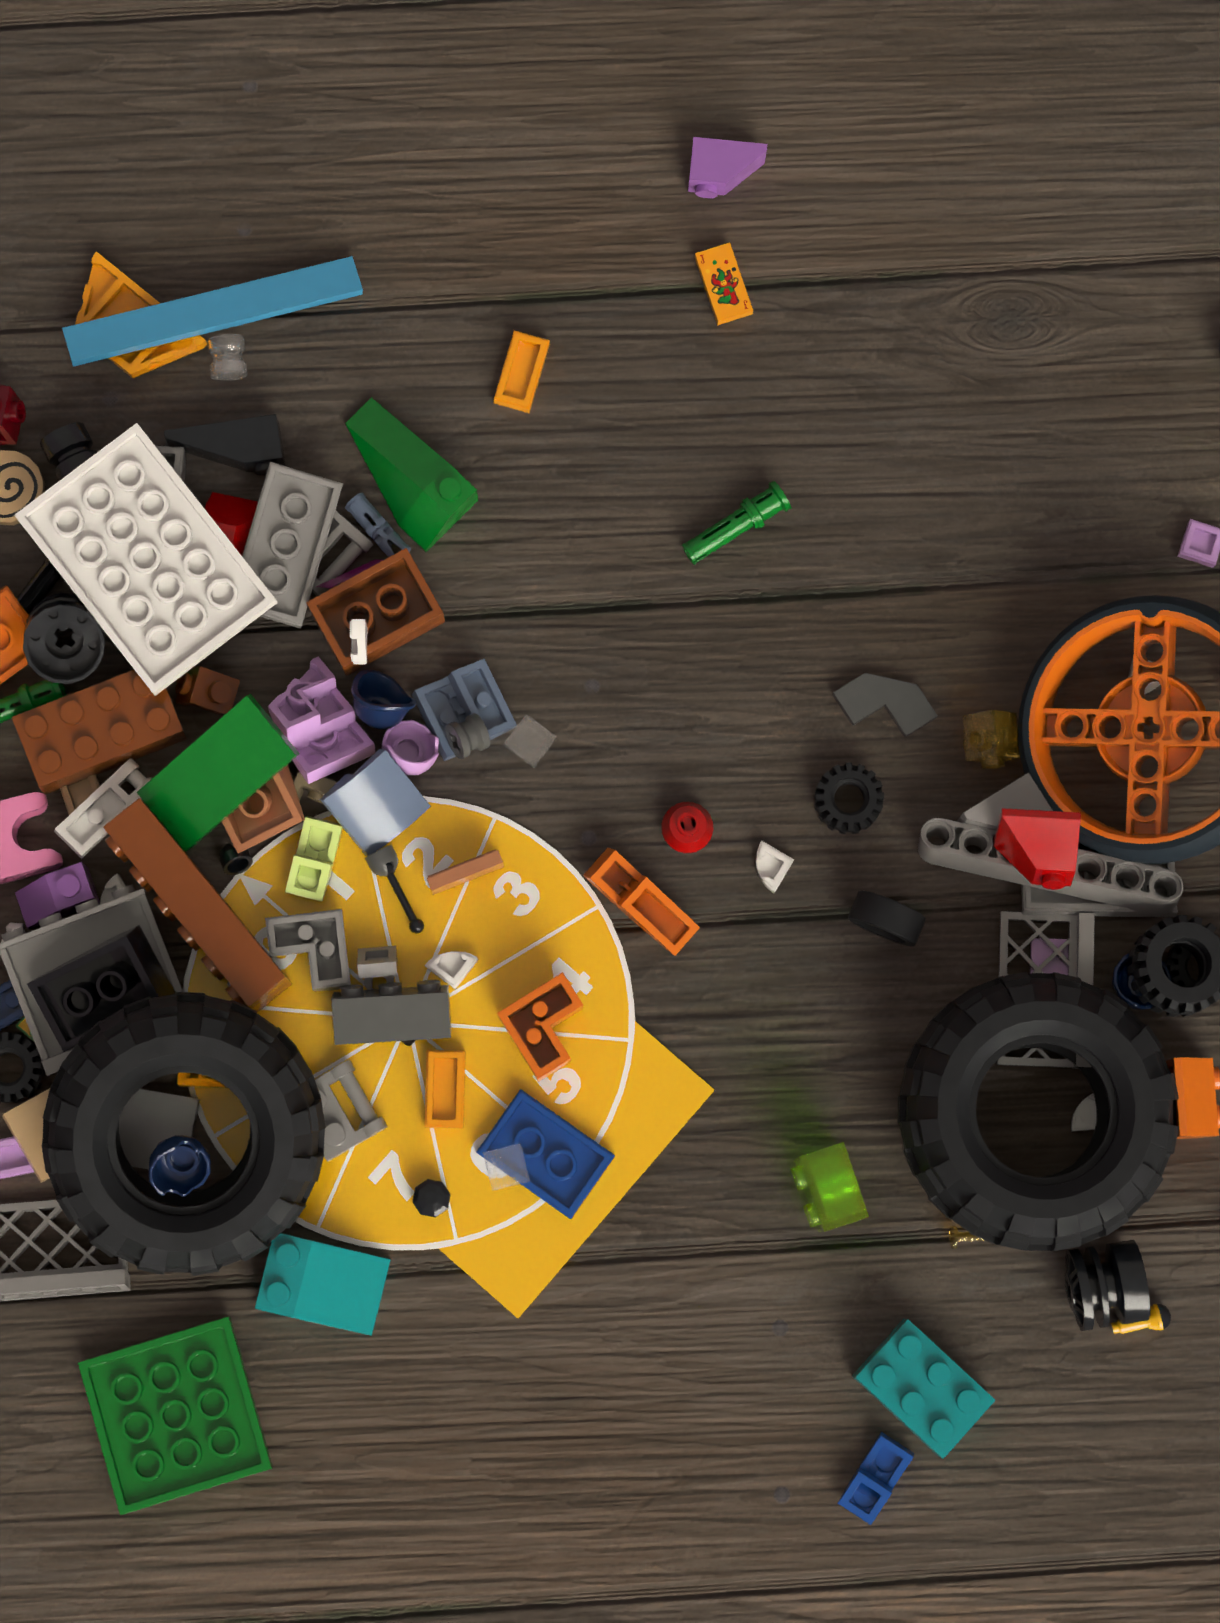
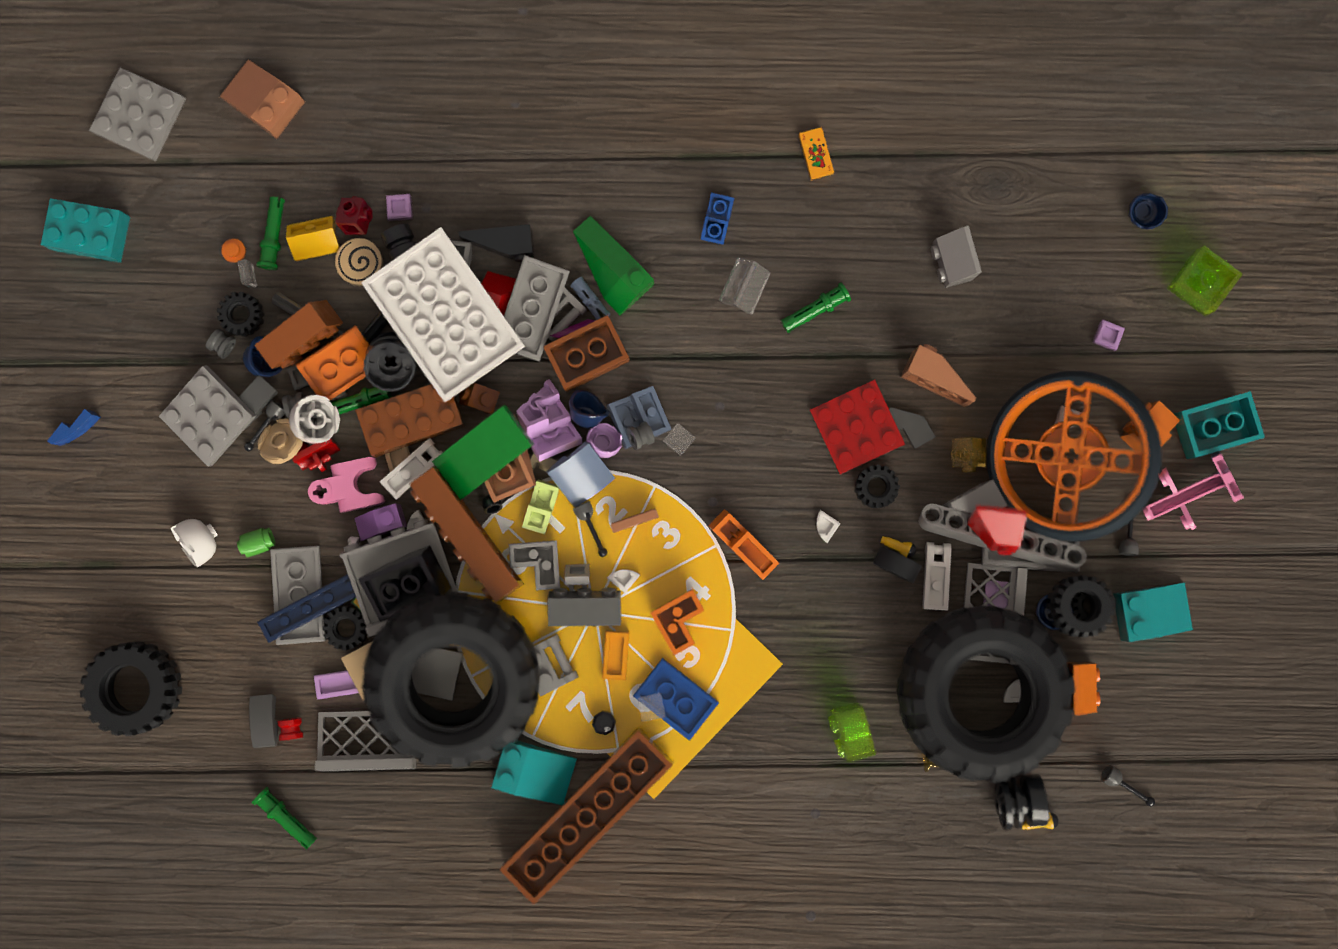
camera: 10 degrees right, 5 degrees up
(67, 399) = (399, 207): none -> lavender tile
(114, 293) = (440, 160): light orange wing -> none
(175, 1415) = (440, 848): green plate -> none
(179, 1165) = (446, 706): dark blue hair -> none
(212, 311) = (492, 155): dark azure tile -> none
(227, 357) = (500, 185): clear wheel -> none
(358, 633) = (575, 369): white tile -> none
(409, 1347) = (586, 816): none -> dark orange brick
(521, 371) = (685, 203): light orange tile -> none
(573, 391) = (717, 218): none -> blue slope
(622, 493) = (745, 285): none -> clear panel
(690, 838) = (777, 506): red cone -> none
(722, 165) = (819, 76): medium lavender slope -> none
(812, 706) = (857, 427): none -> red plate
(876, 1478) = (869, 909): blue slope -> none
(901, 893) = (907, 549): none -> yellow piece
(923, 1388) = (902, 858): teal brick -> none
(929, 616) = (936, 375): none -> nougat slope
(951, 433) = (956, 257): none -> light grey slope
(952, 937) = (936, 577): none -> white plate

